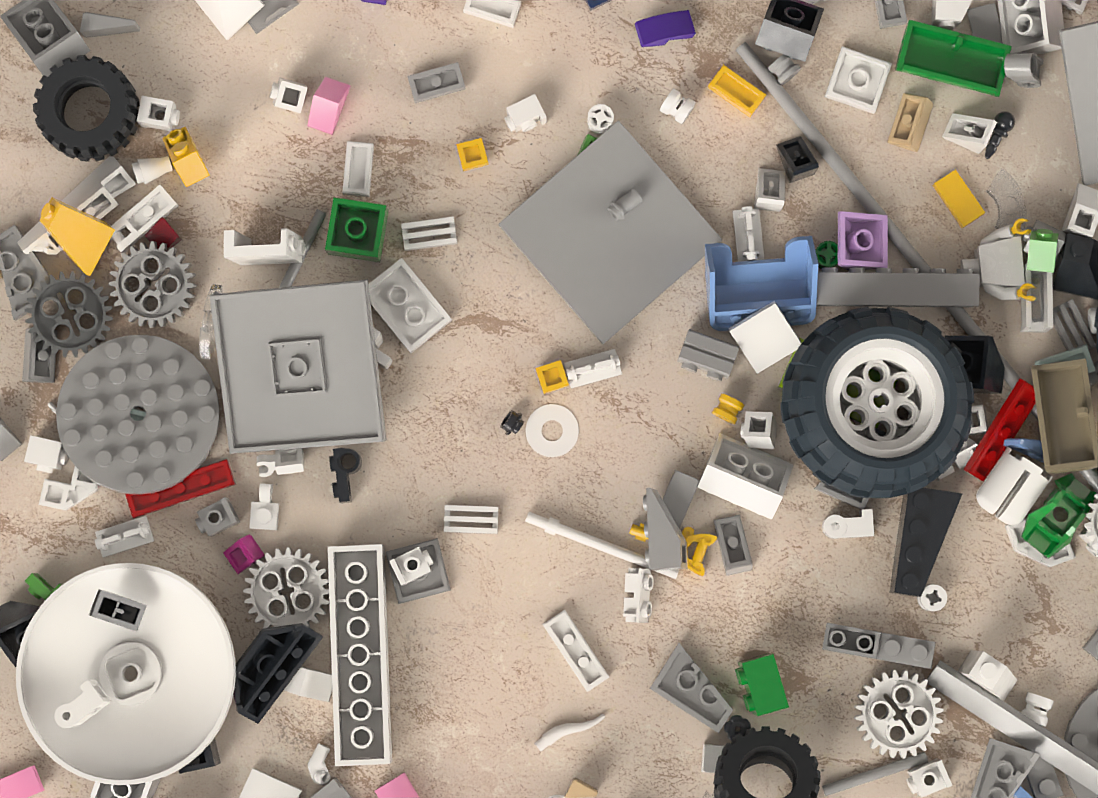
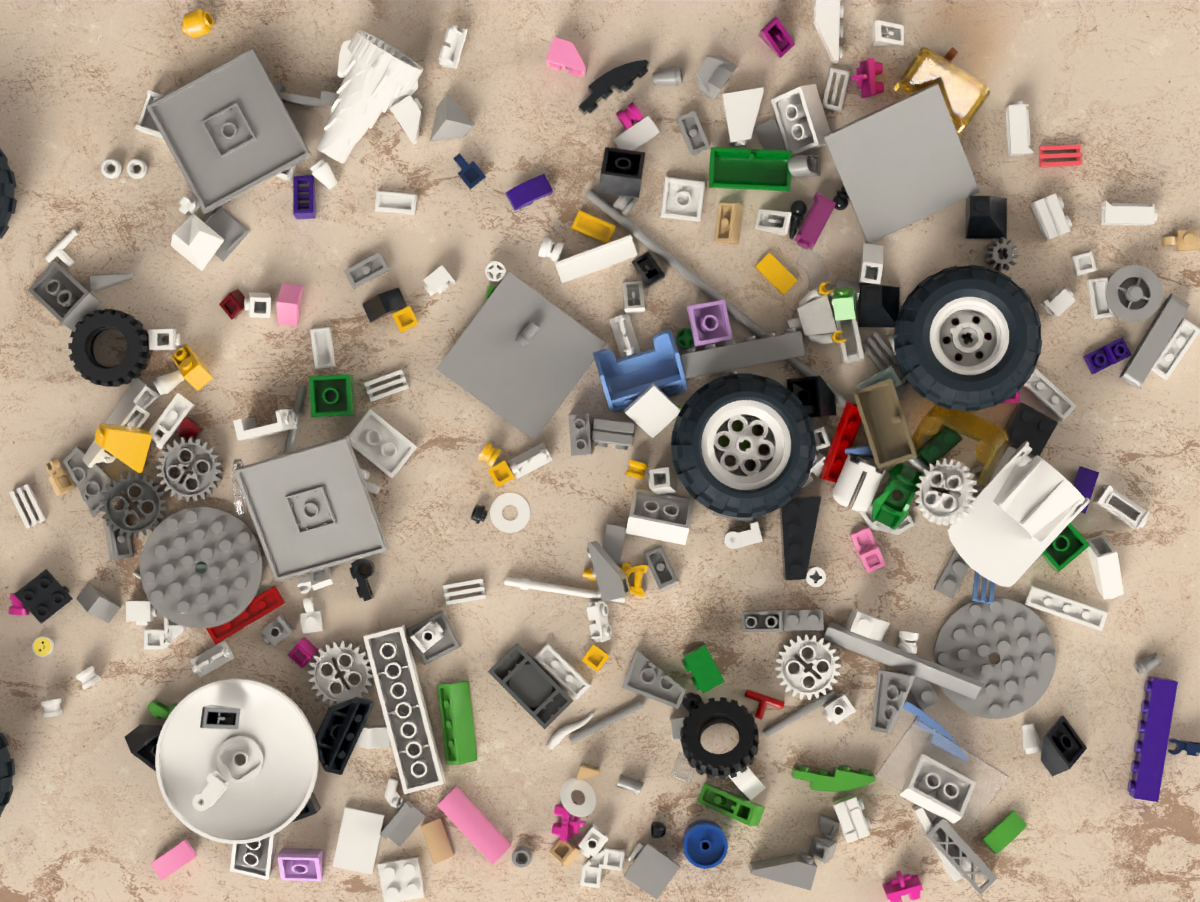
camera: 15 degrees left, 5 degrees up
(257, 89) = (233, 303): none -> dark red slope
(424, 689) = (457, 723): none -> bright green panel
(448, 130) = (384, 304): none -> black slope
(531, 660) = (530, 686): none -> dark grey slope
(543, 348) = (489, 454): none -> yellow wheel
(619, 729) = (606, 721): none -> light grey bar
(623, 642) = (595, 657): none -> yellow plate
(665, 348) = (580, 434): none -> light grey brick
(732, 130) = (596, 259): none -> white panel
(831, 748) = (763, 702): none -> red piece
(1006, 577) = (867, 549): none -> bright pink slope
(1022, 141) = (814, 221): none -> magenta window
(1059, 125) = (841, 199): none -> black bar

